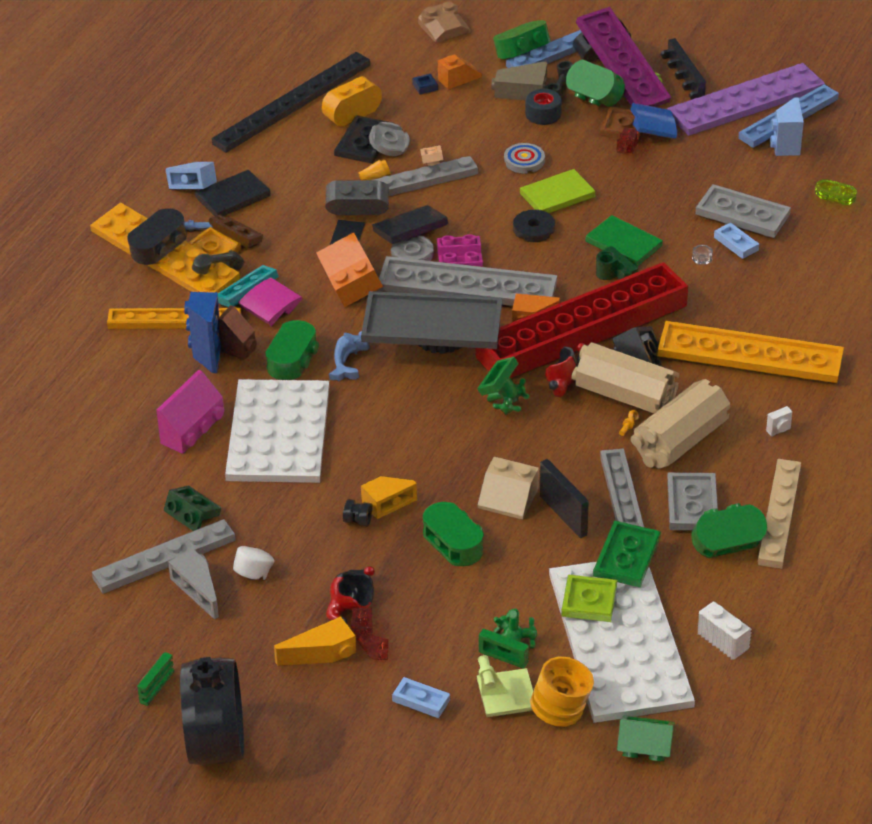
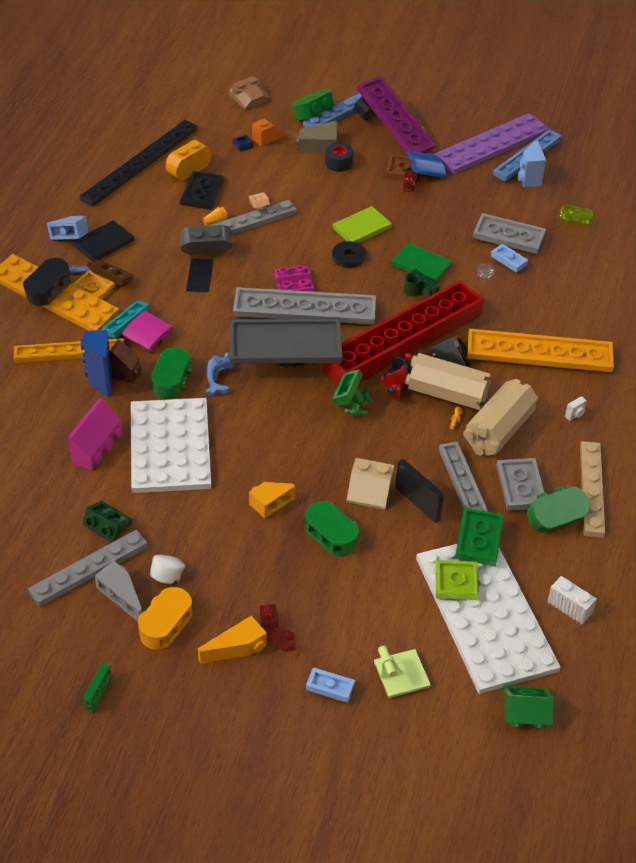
camera: 10 degrees left, 5 degrees up
(203, 262) = (88, 302): pearl dark grey bar -> none
(212, 711) = (155, 723): black cylinder -> none
(243, 614) = (165, 618): none -> light orange brick
(349, 269) = (208, 300): orange slope -> none
(350, 591) = (254, 590): piece -> none
(357, 512) = (248, 515): black wheel -> none
(389, 139) = (222, 189): light grey tile -> none
(410, 224) = (250, 259): black tile -> none
(413, 248) = (255, 279): light grey tile -> none
(508, 645) = (394, 628): green piece -> none
(524, 157) = (331, 199): light grey tile -> none
(529, 304) = (360, 322): orange slope -> none
(562, 69) = (350, 129): pearl dark grey bar -> none
(562, 691) = (451, 671): light orange wheel -> none
(595, 83) = (377, 136): green brick -> none
(686, 69) = (442, 122): black hinge -> none

